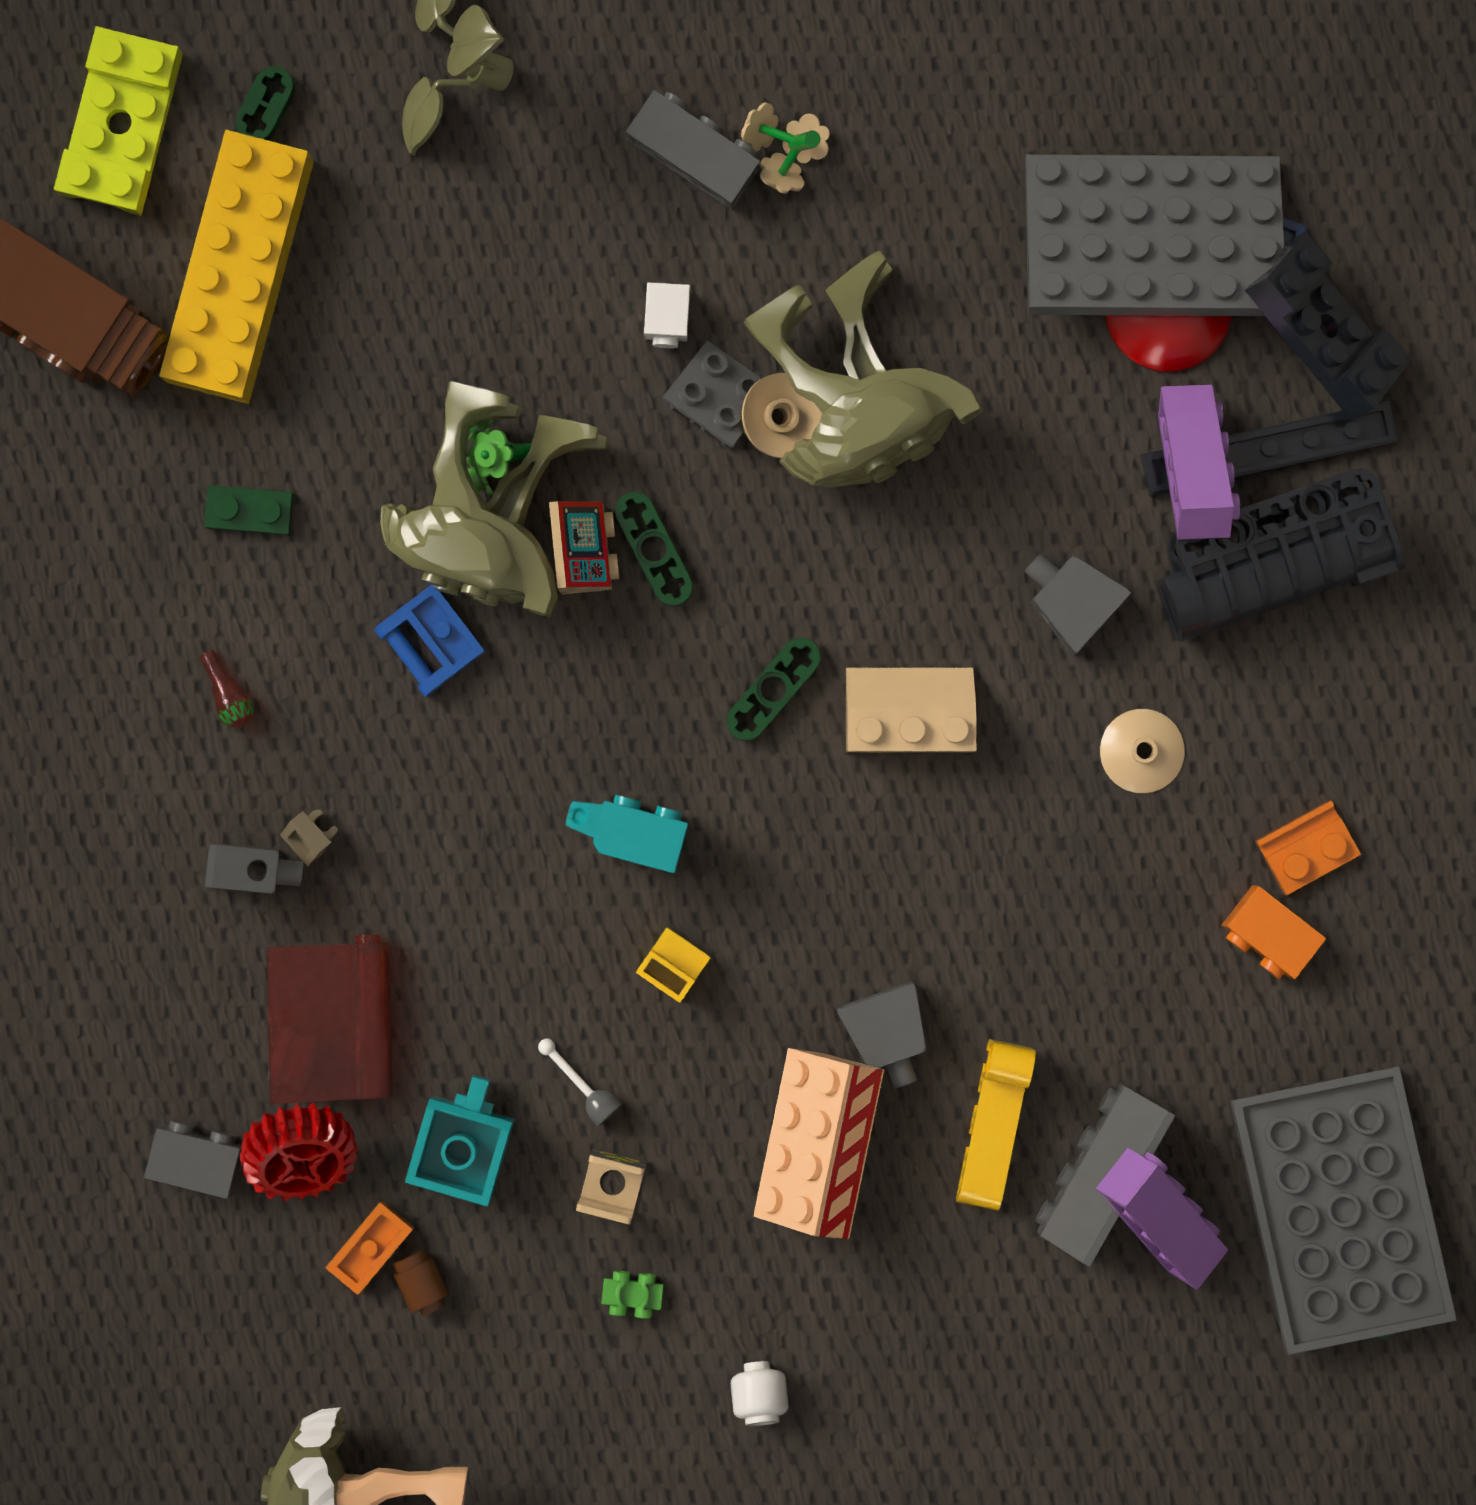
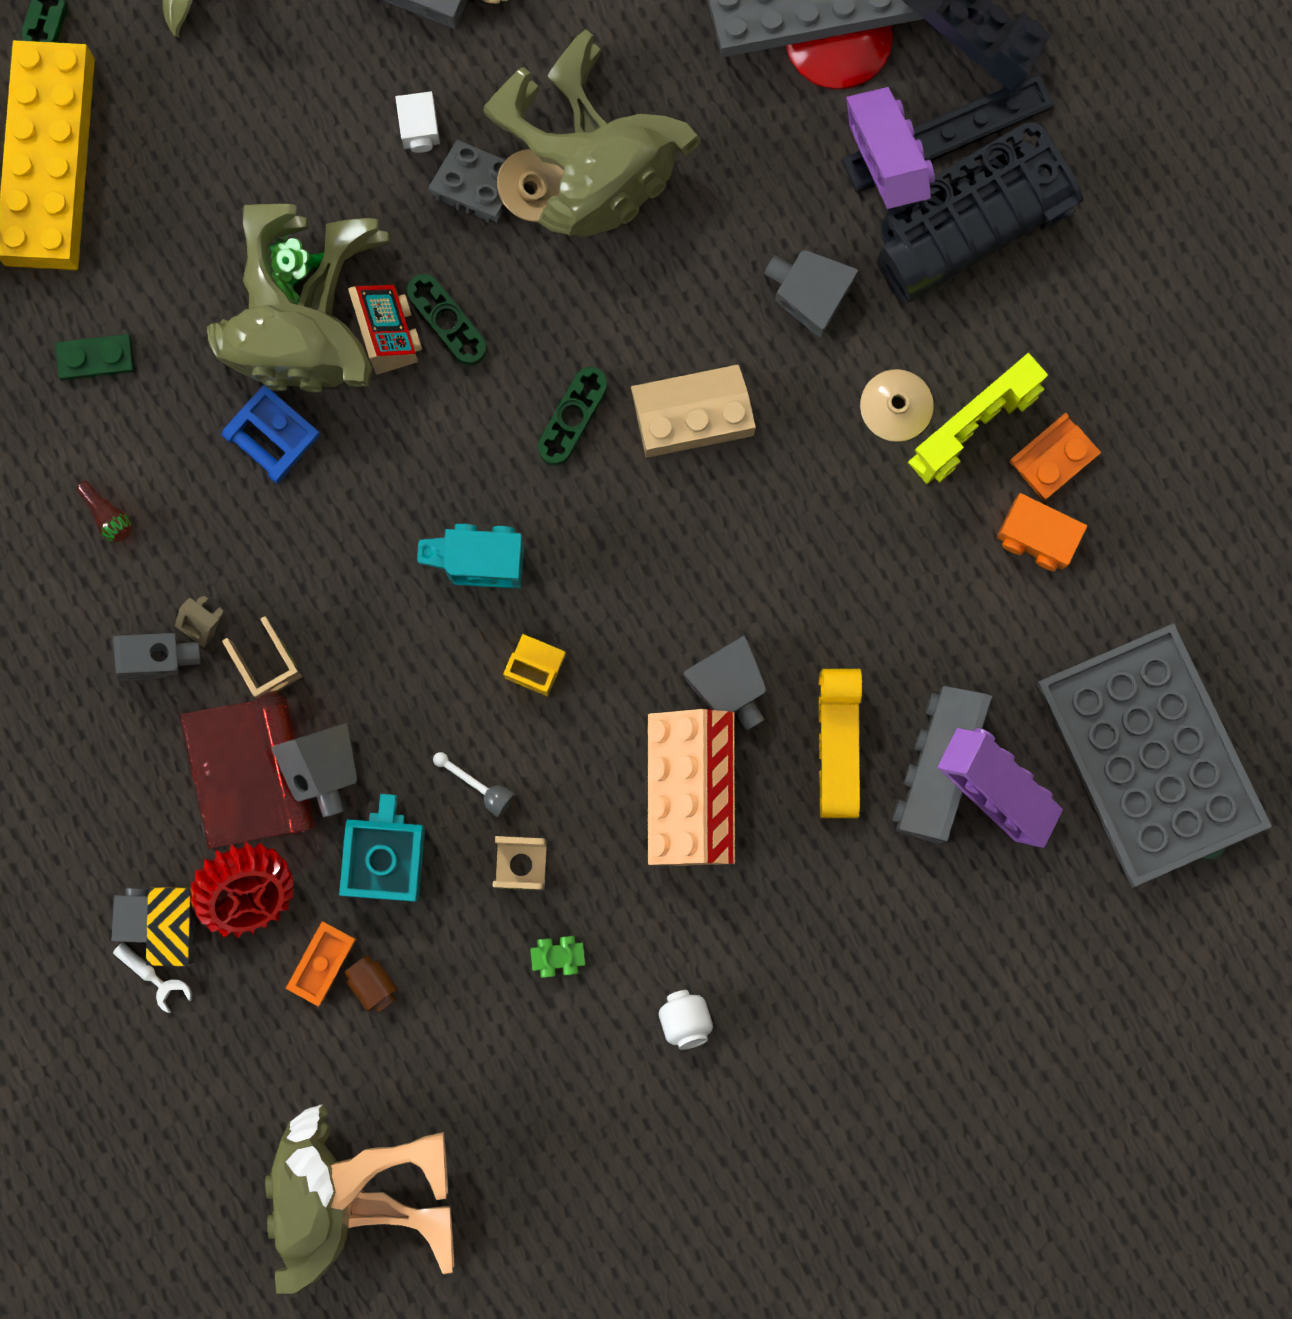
camera: 15 degrees left, 5 degrees down
(177, 1217) = (148, 973): none -> white piece
(210, 1172) = (168, 926): none -> sticker
(349, 906) = (276, 684): none -> tan piece
(410, 1030) = (318, 766): none -> dark grey torso
(1280, 765) = (1015, 388): none -> neon yellow piece

